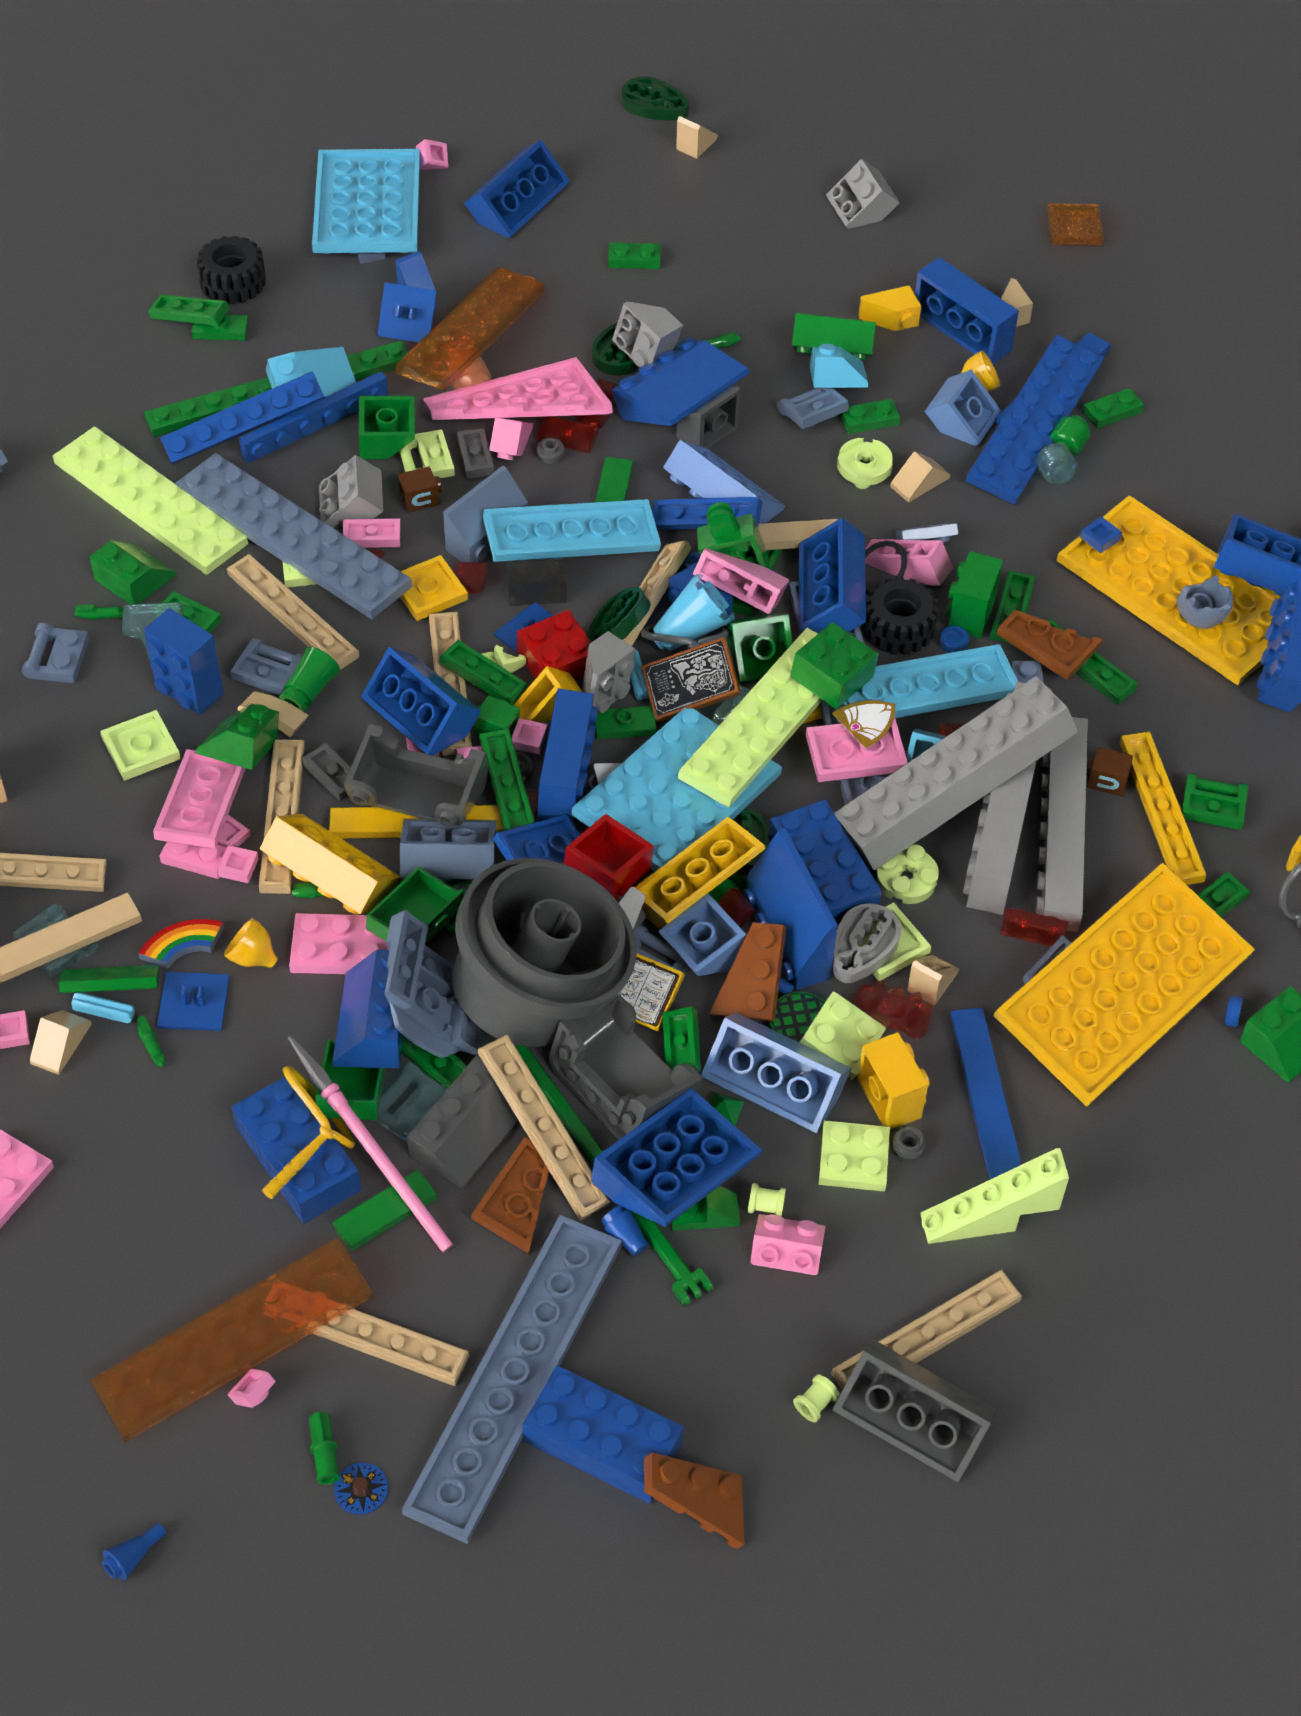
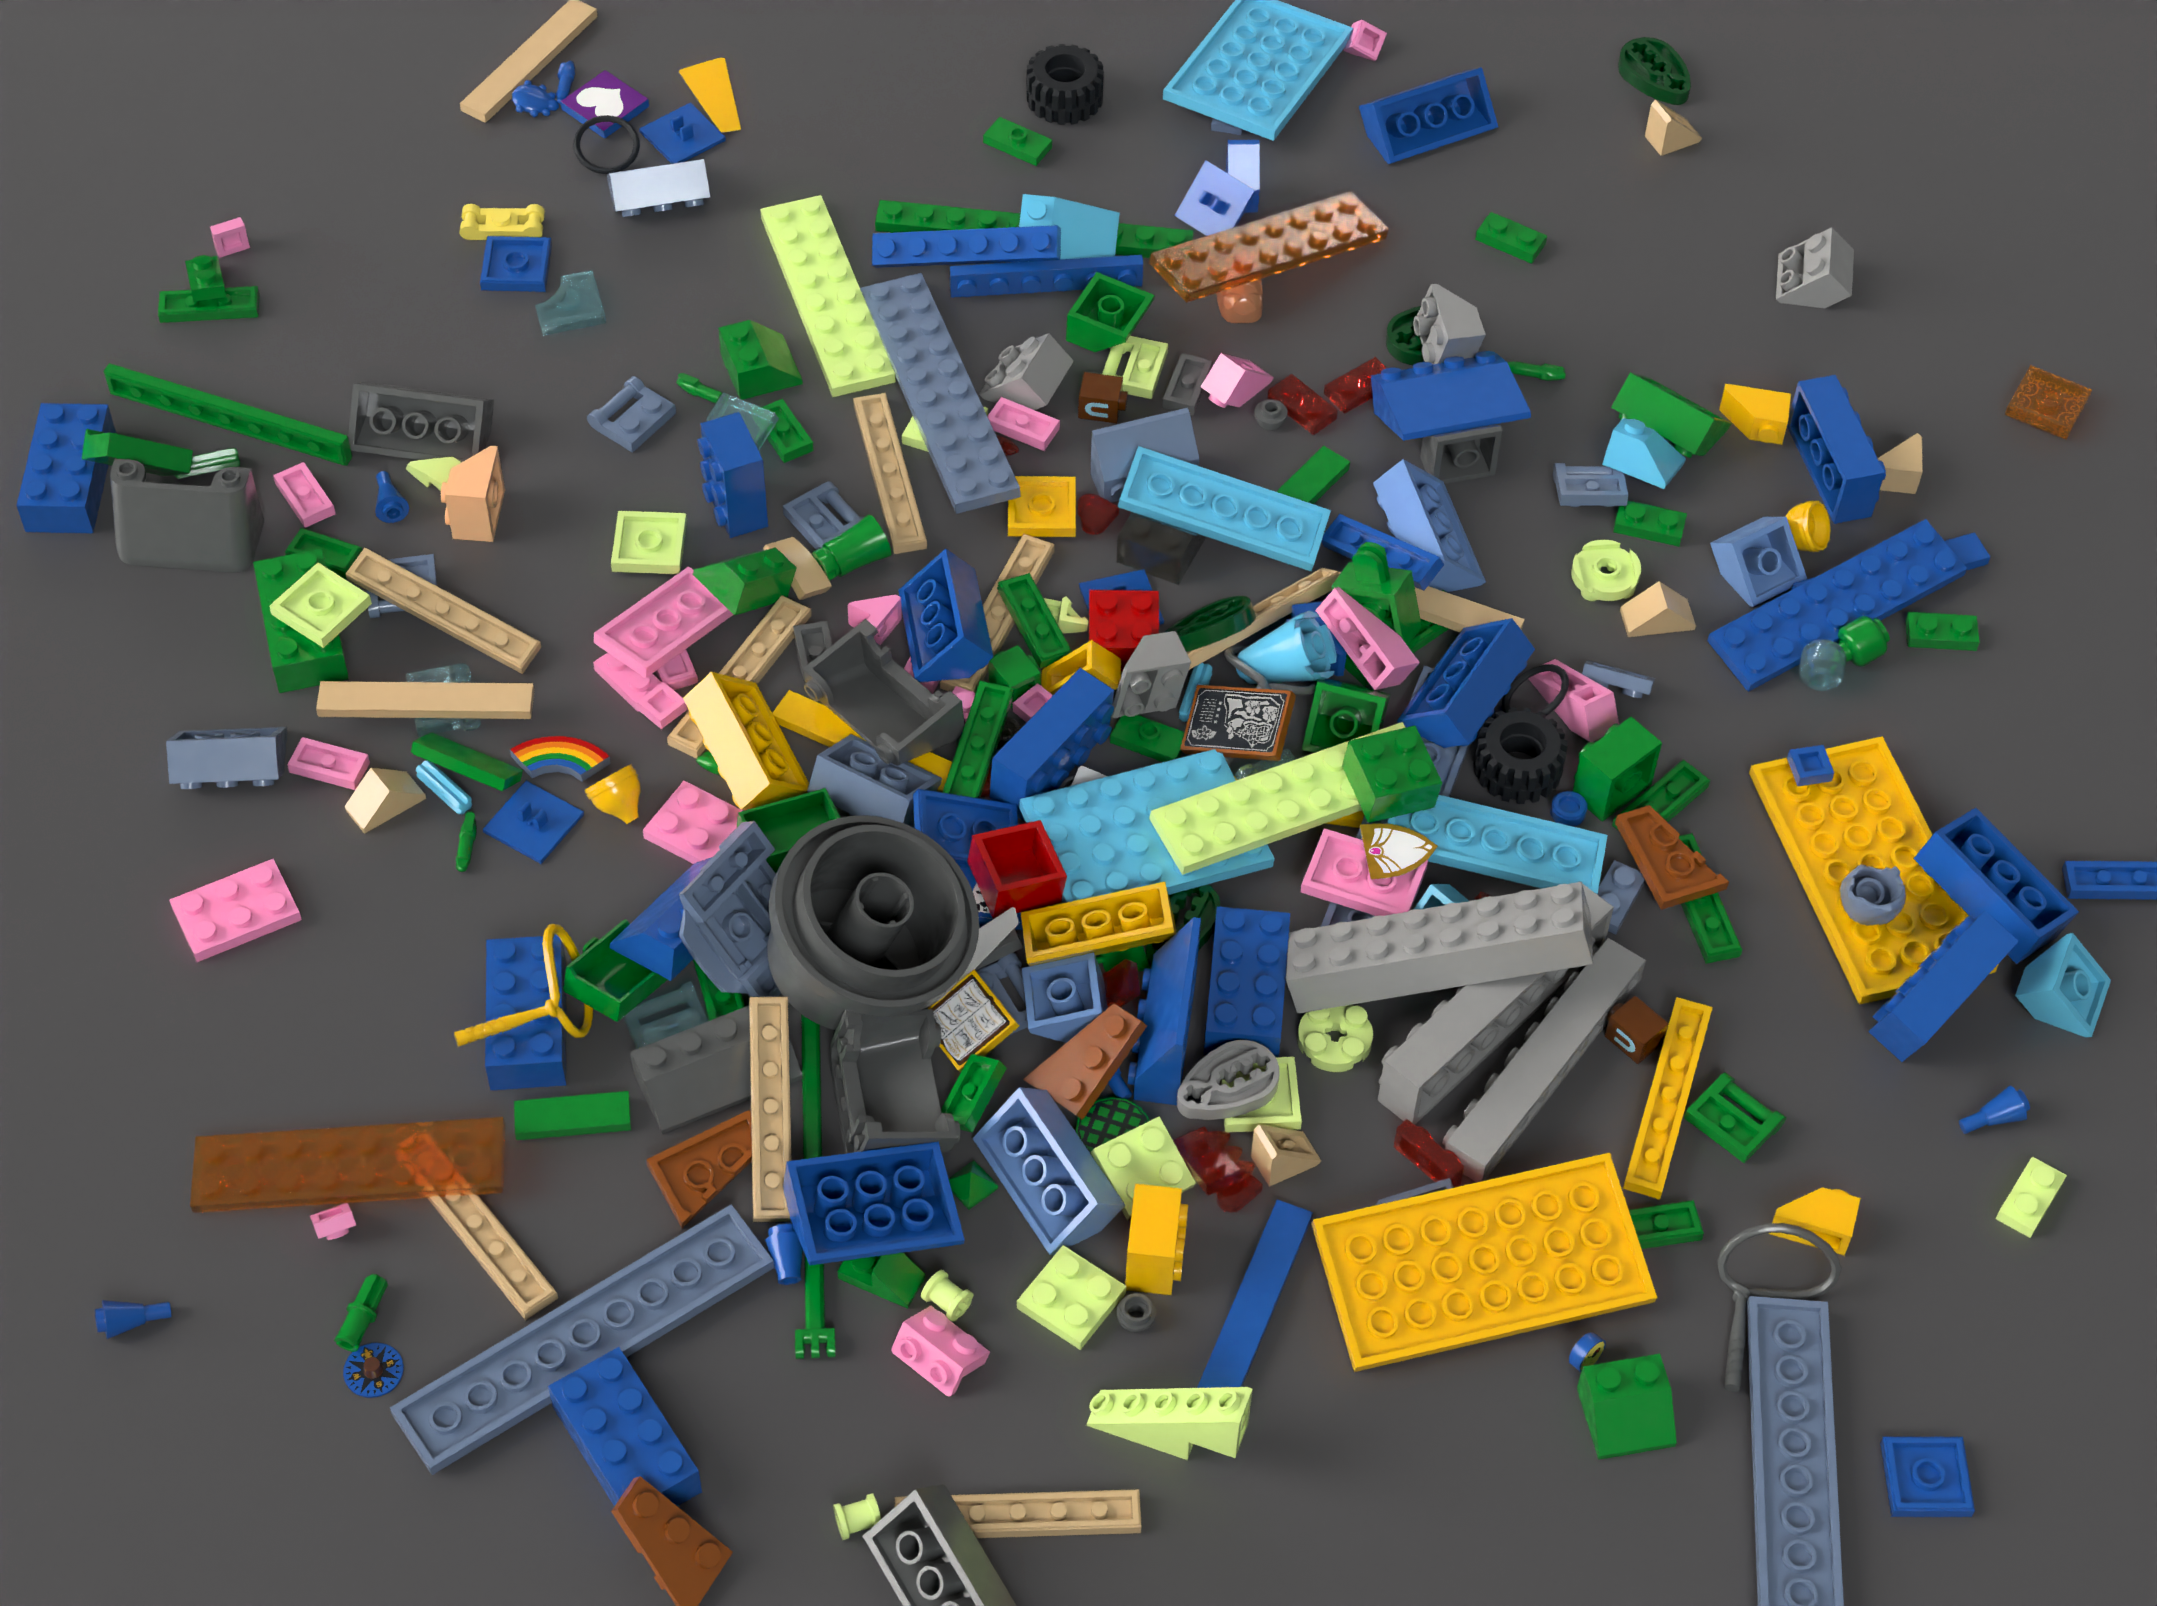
camera: 30 degrees right, 0 degrees up
(189, 309) = (995, 110): green tile -> none
(340, 1104) = (582, 987): bright pink piece -> none
(355, 723) = (881, 612): none -> bright pink slope
(547, 390) = (1299, 347): bright pink wing -> none

